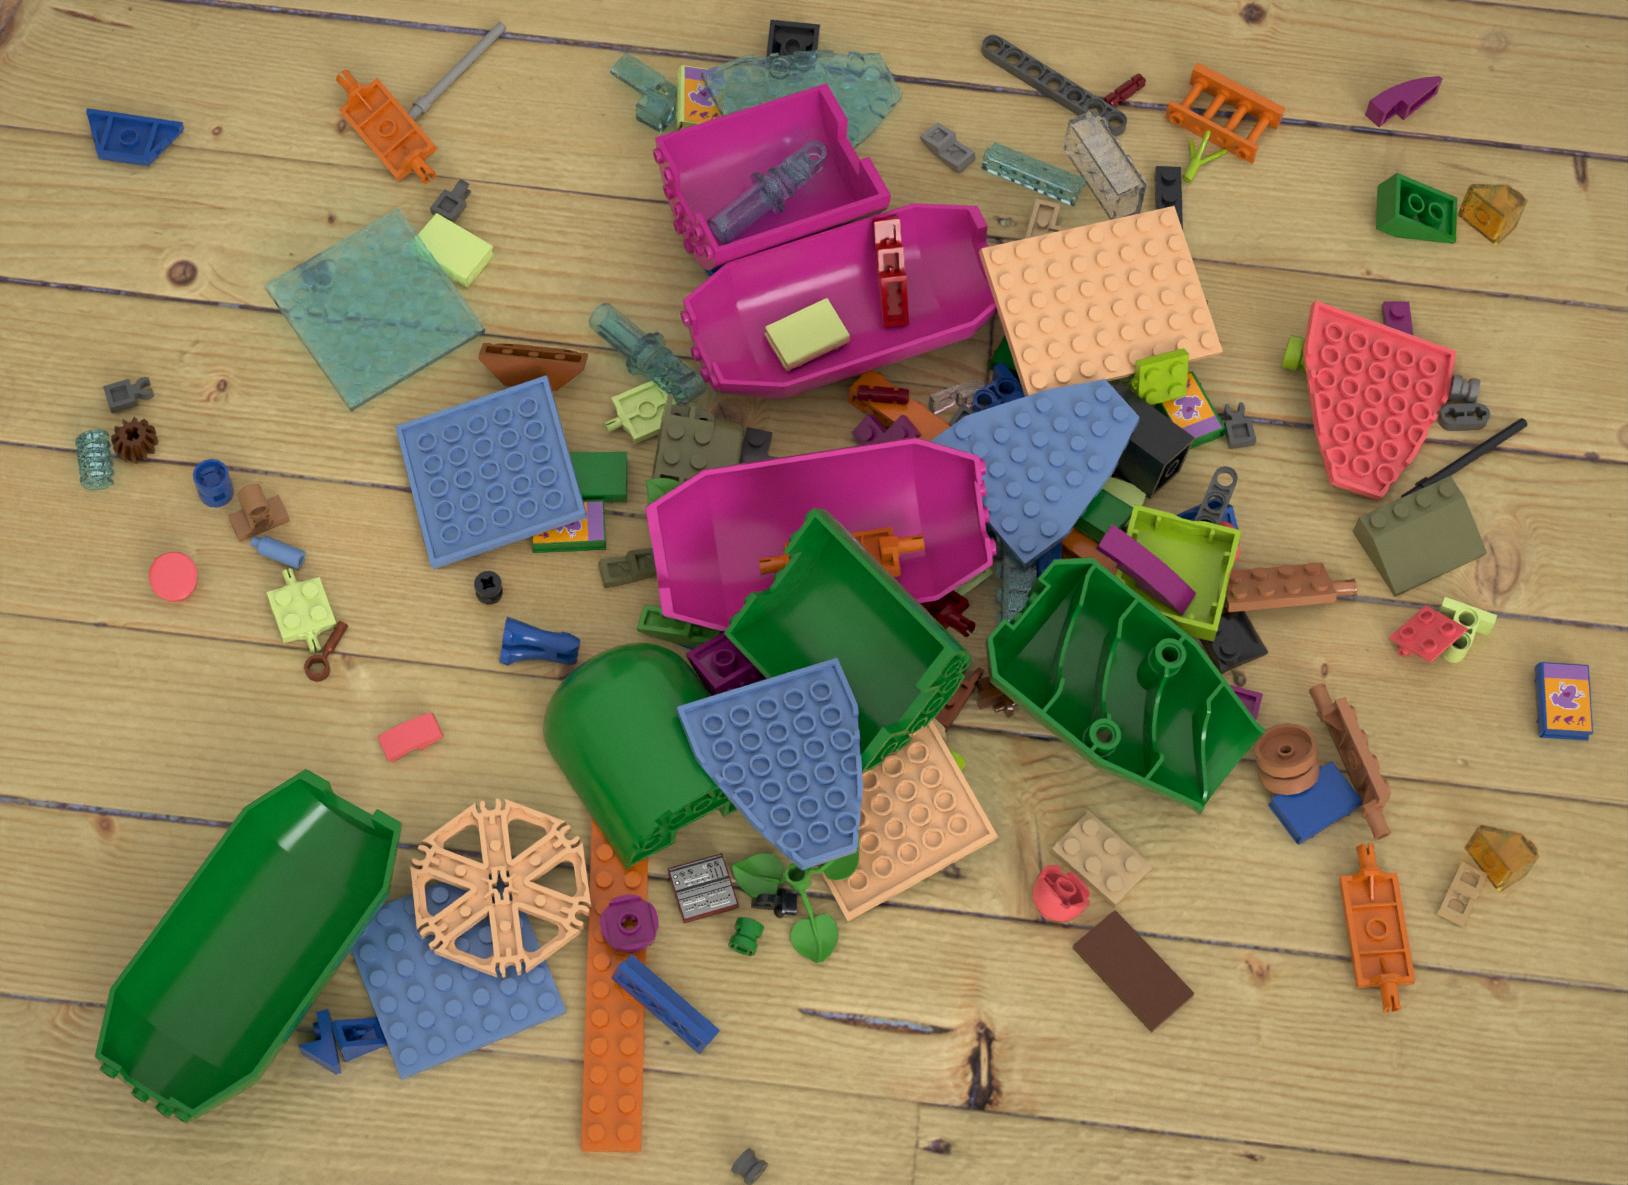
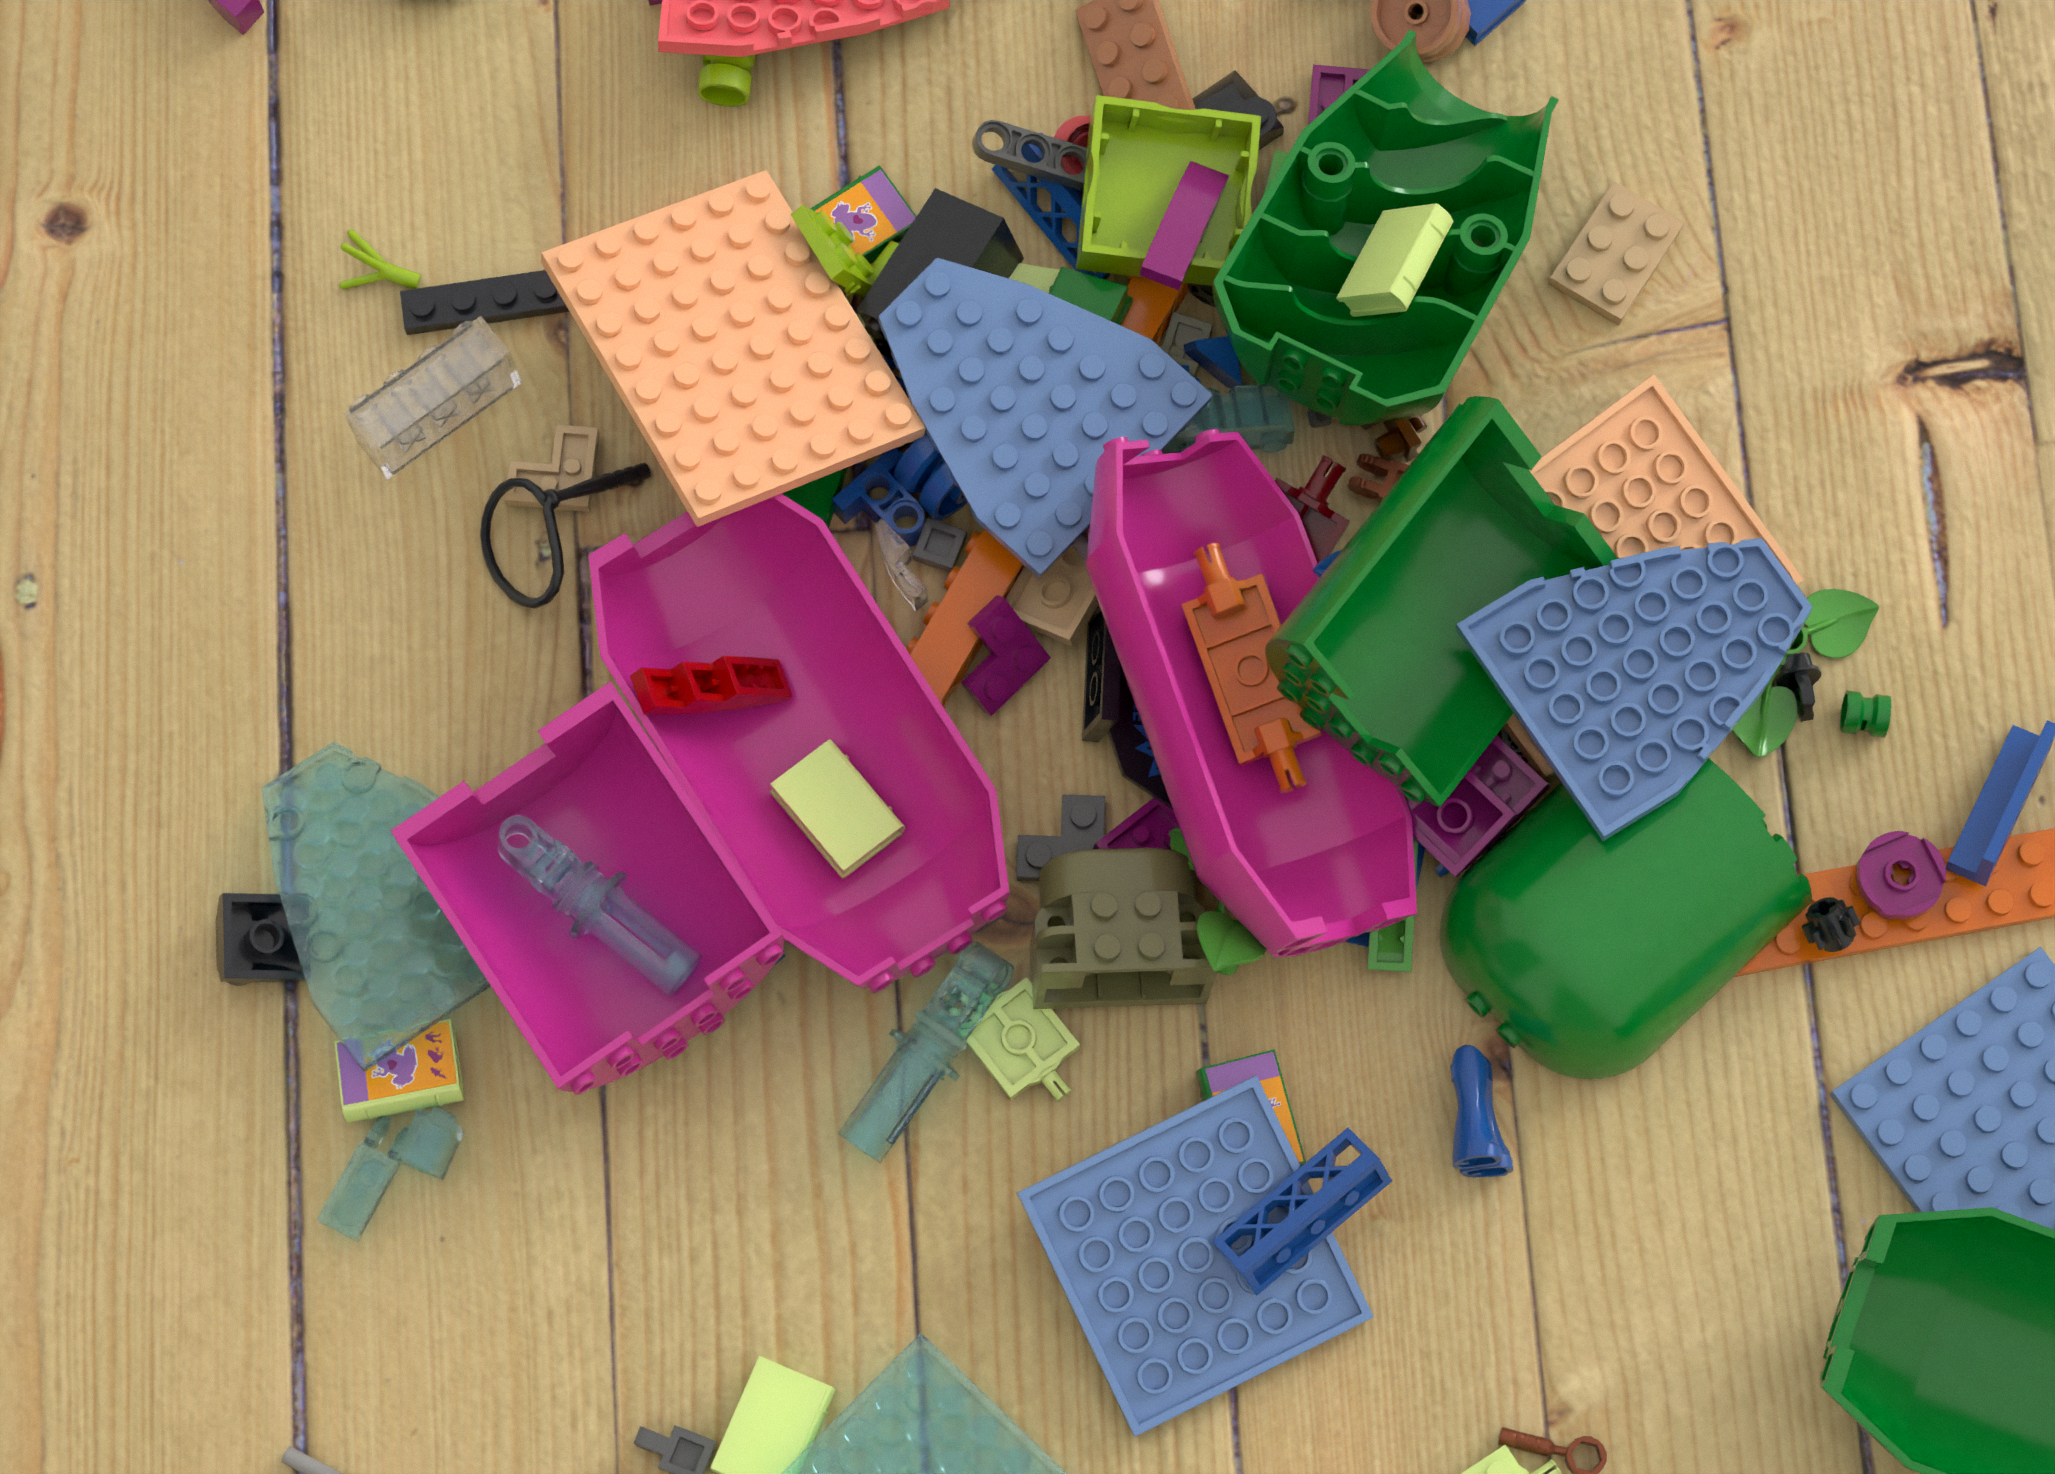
camera: 95 degrees left, 10 degrees up
(410, 735) = (1670, 1277): coral slope -> none
(474, 878) = (1896, 1033): light nougat plate -> none
(490, 594) = (1386, 1225): black wheel -> none
(492, 525) = (1285, 1243): none -> blue fence
(522, 363) = (973, 1232): dark orange wedge -> none
(601, 475) = (1153, 1081): green piece -> none
(605, 869) = (1830, 924): none -> black gear
(627, 569) = (1302, 1009): olive slope -> none
(703, 888) = (1806, 790): light grey tile -> none
(883, 394) = (935, 661): dark red axle -> none
(945, 146) = (421, 657): light grey slope -> none
(1025, 212) = (549, 500): none -> black piece
(1033, 173) = (457, 517): clear light blue fence -> none
(1047, 75) = (265, 530): dark grey beam -> none
(1059, 895) = (1700, 290): coral cylinder -> none
(1096, 680) = (1395, 260): none -> yellowish green piece
(1125, 90) = (261, 397): dark red axle -> none
(1133, 970) = (1773, 189): reddish brown tile -> none
(1234, 94) = (260, 205): orange fence -> none
(1238, 430) = (871, 148): dark grey plate -> none

